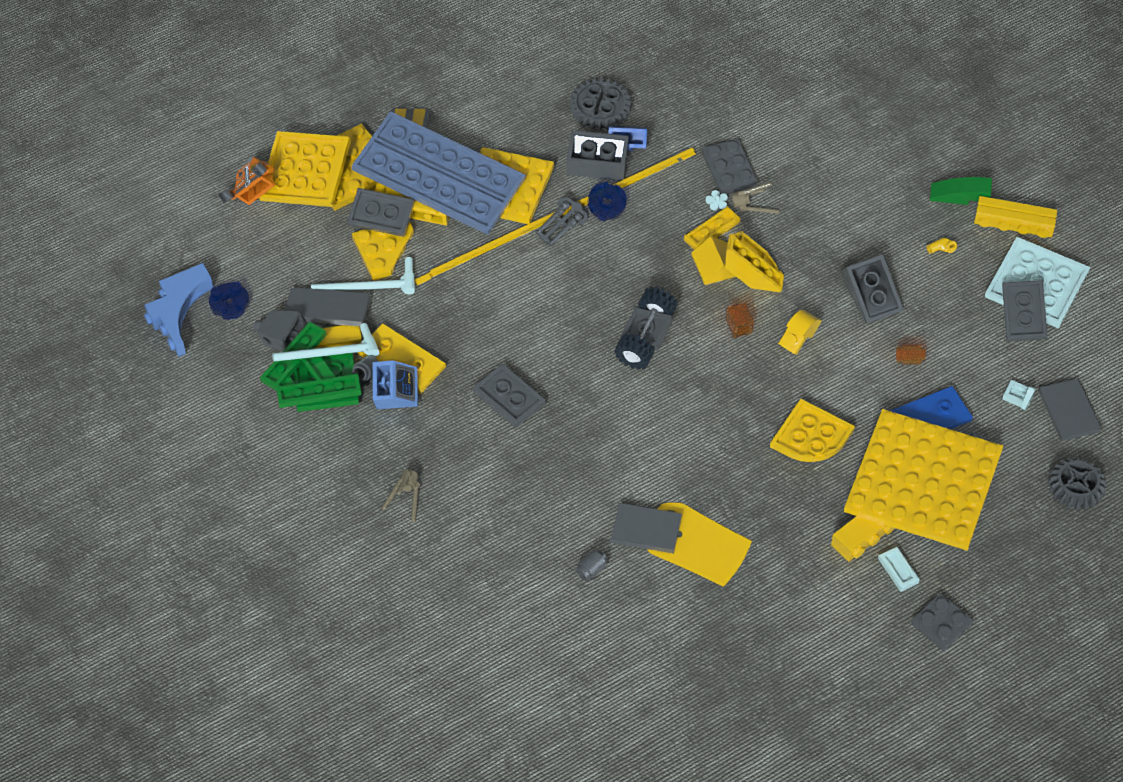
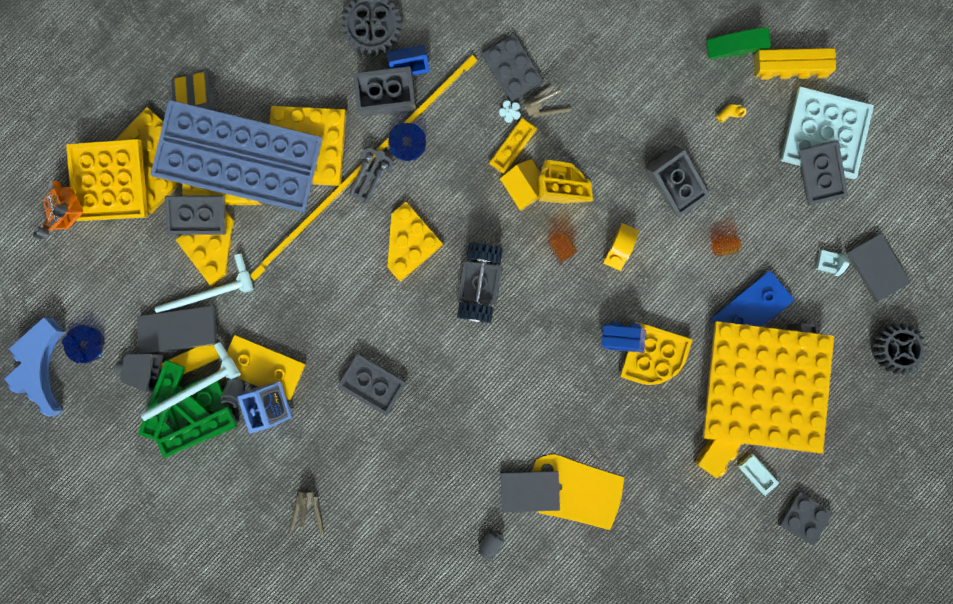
camera: 15 degrees left, 30 degrees up
(584, 286) = (409, 242): none -> yellow plate
(782, 405) = (624, 338): none -> blue brick

